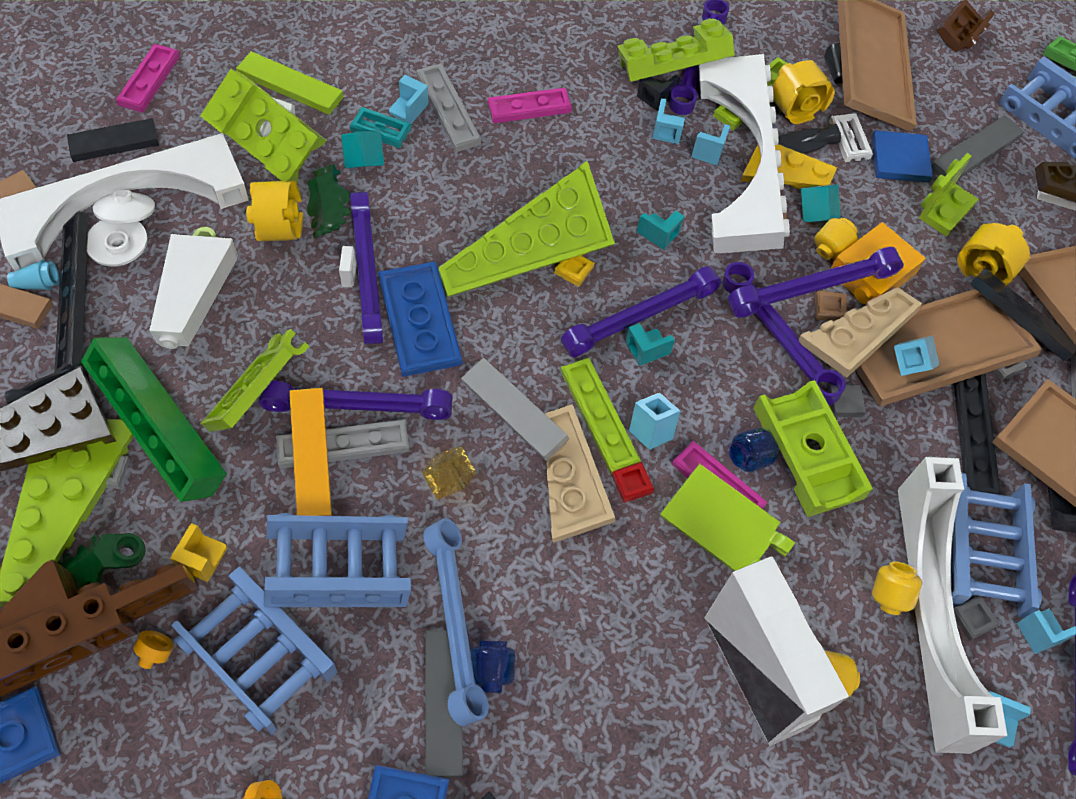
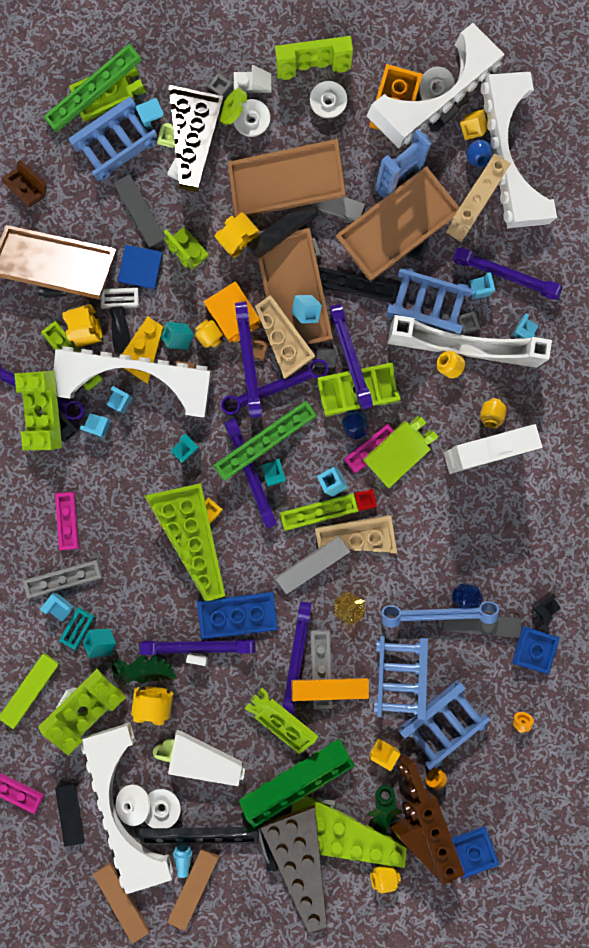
camera: 75 degrees left, 25 degrees up
(698, 323) = (264, 441): none -> bright green tile
(808, 437) = (362, 392): none -> dark purple piece

